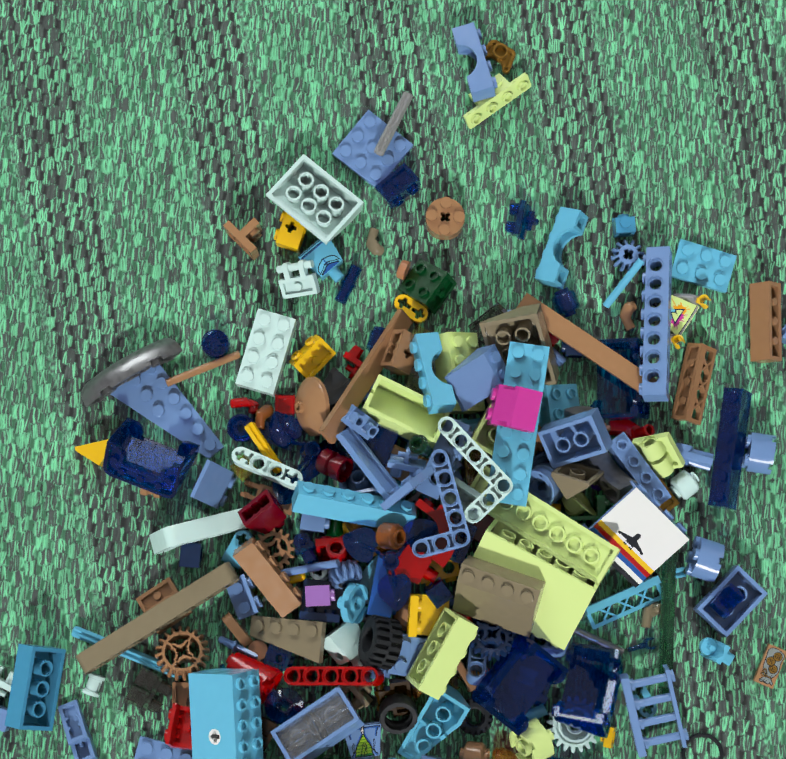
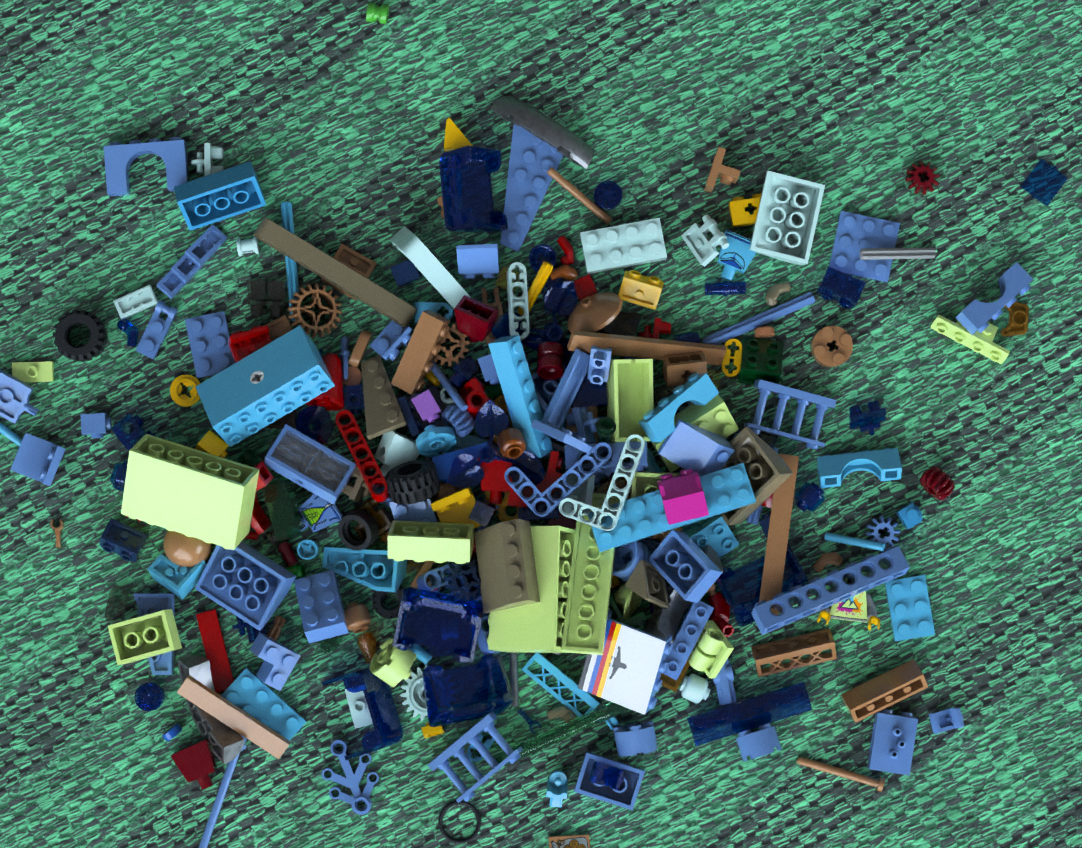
camera: 65 degrees right, 5 degrees up
(338, 78) = (915, 179): none -> dark red gear
(390, 268) = (760, 319): none -> medium blue axle
(478, 264) = (803, 400): none -> medium blue fence
(607, 188) = (937, 483): none -> dark red gear

